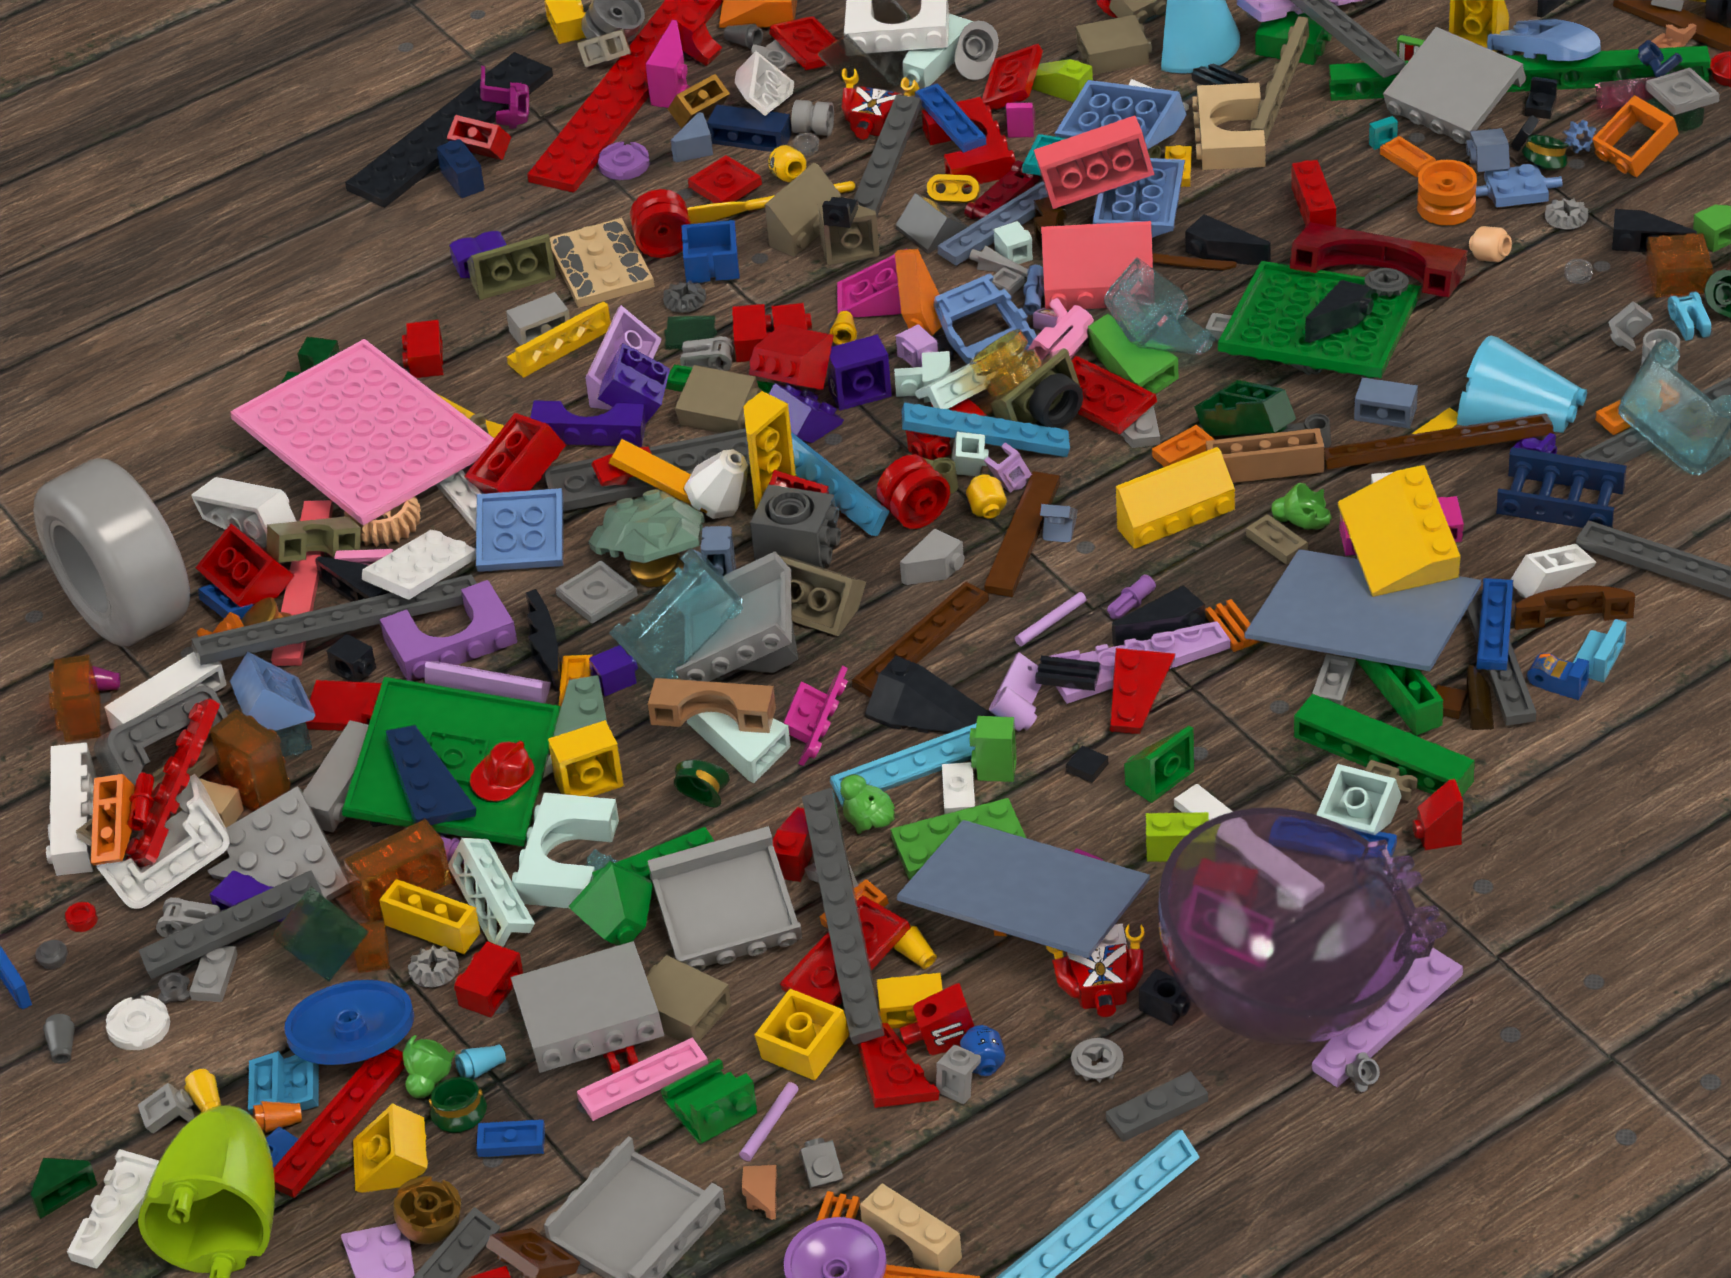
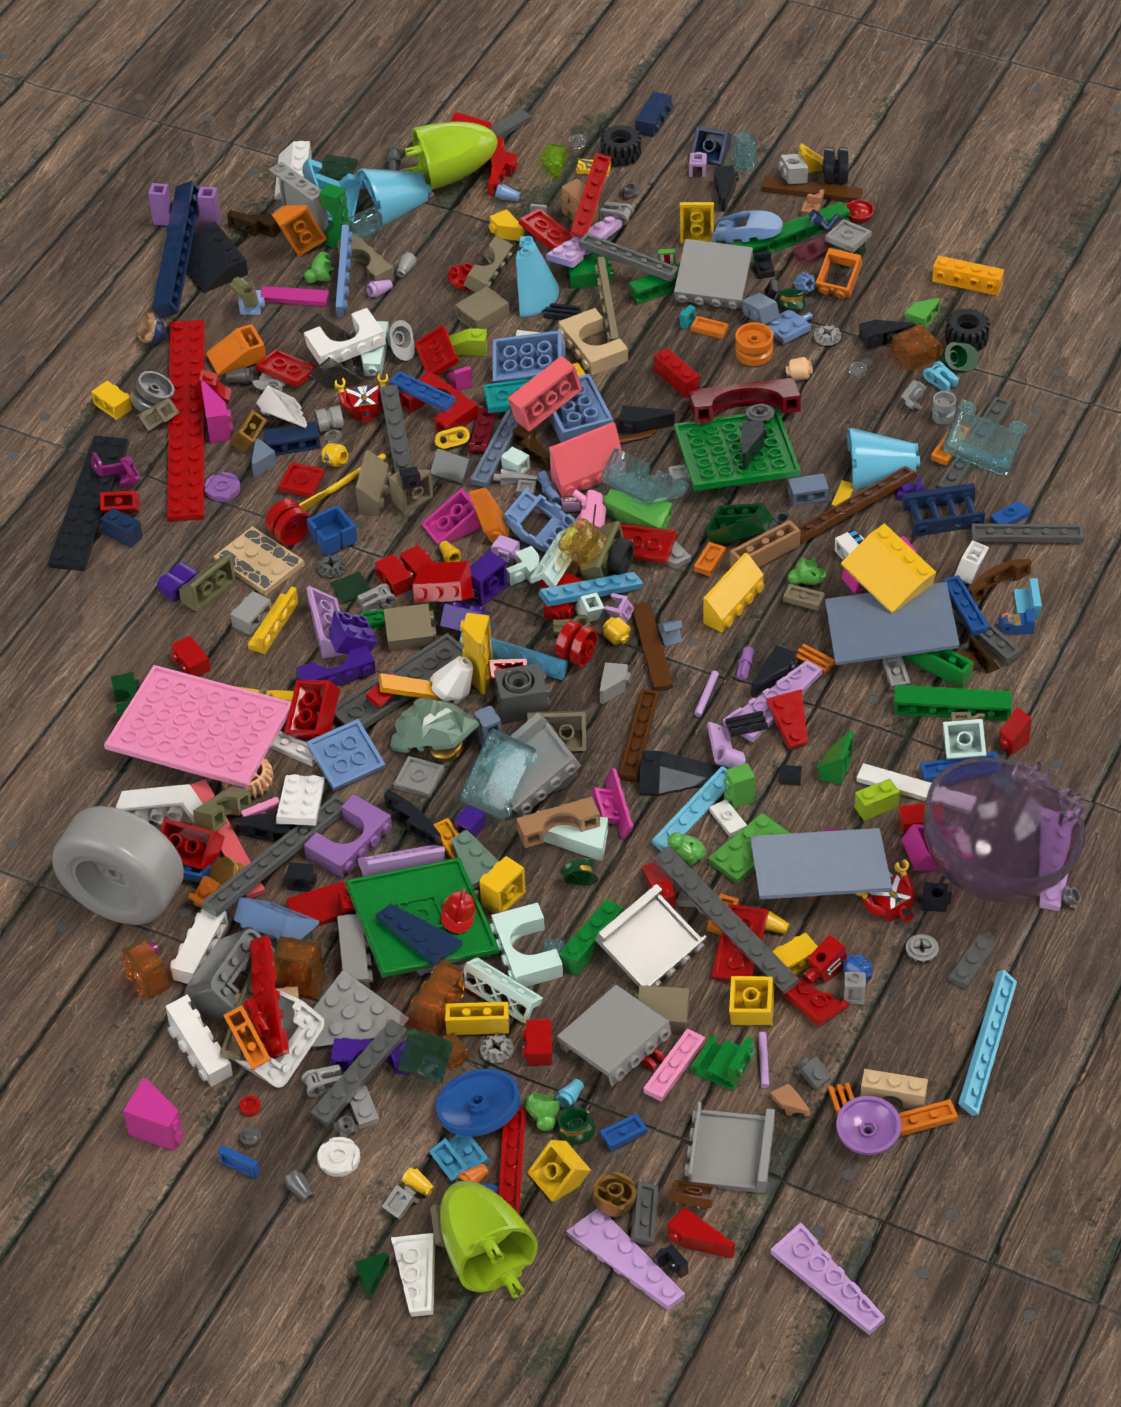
camera: 30 degrees left, 5 degrees up
(615, 904) = (590, 967): green slope -> none
(1661, 529) = (1011, 514): none -> blue plate

